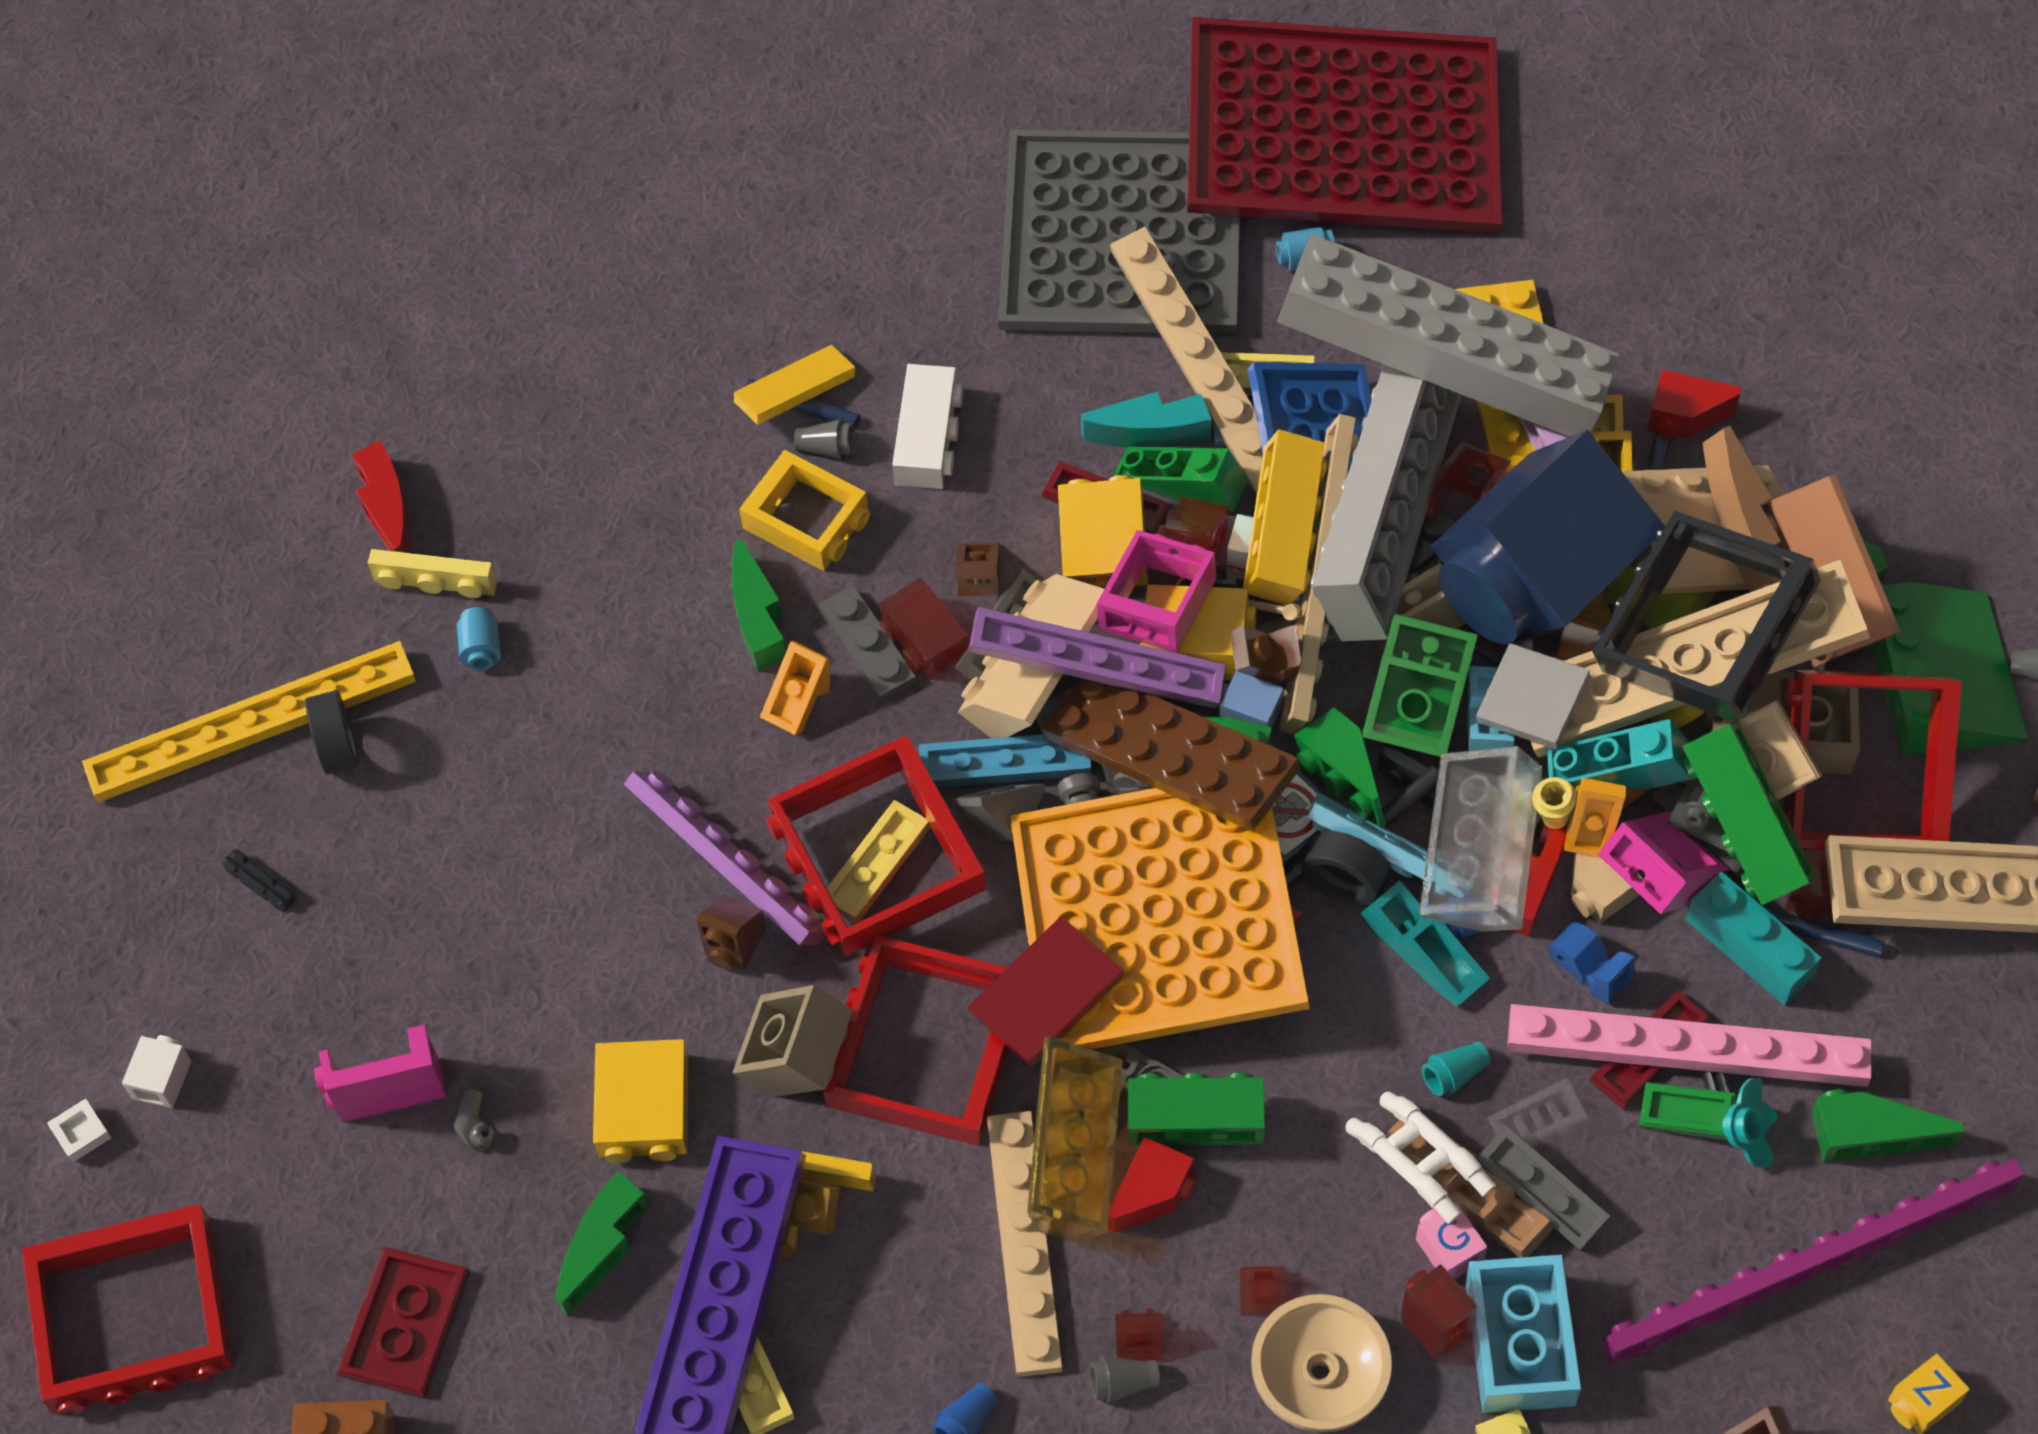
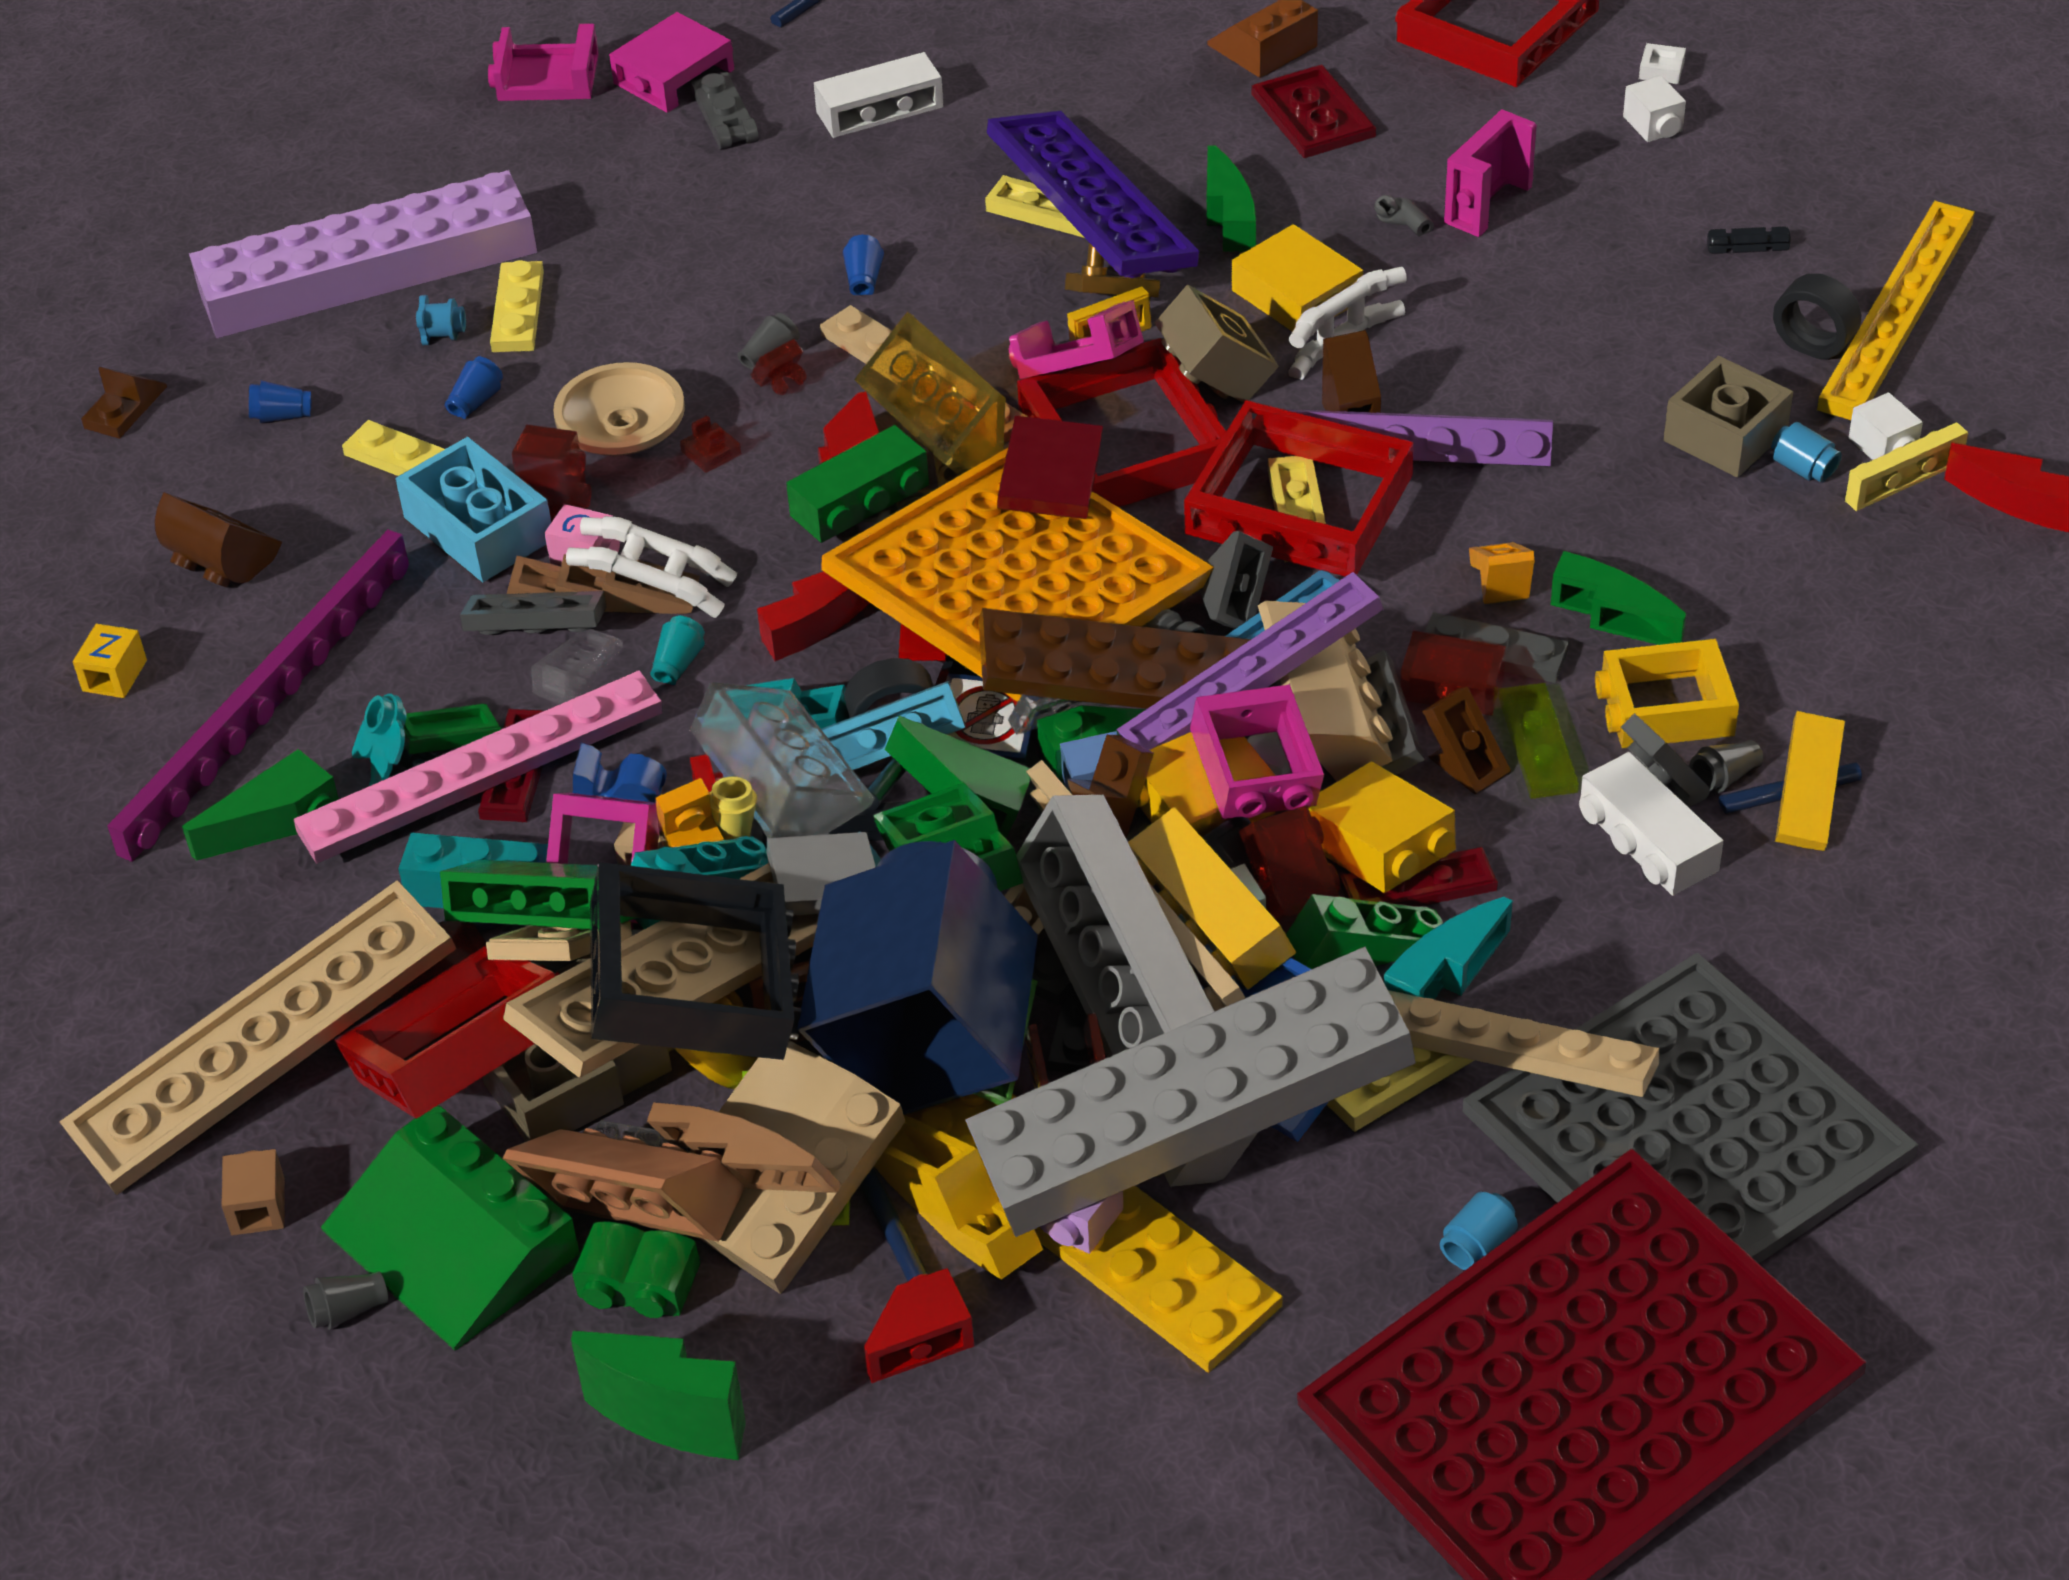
camera: 140 degrees right, 15 degrees down
(406, 612) = (1883, 426): none -> white brick
(500, 695) = (1727, 416): none -> dark tan brick
(683, 1017) = (1358, 316): none -> white piece
(885, 430) = (1664, 762): none -> dark grey plate
(902, 1124) = (1112, 334): none -> dark pink panel
(919, 546) = (1538, 740): none -> clear neon green tile
(1312, 1030) = (809, 616): none -> red slope
(1886, 441) = (661, 1392): none -> green slope

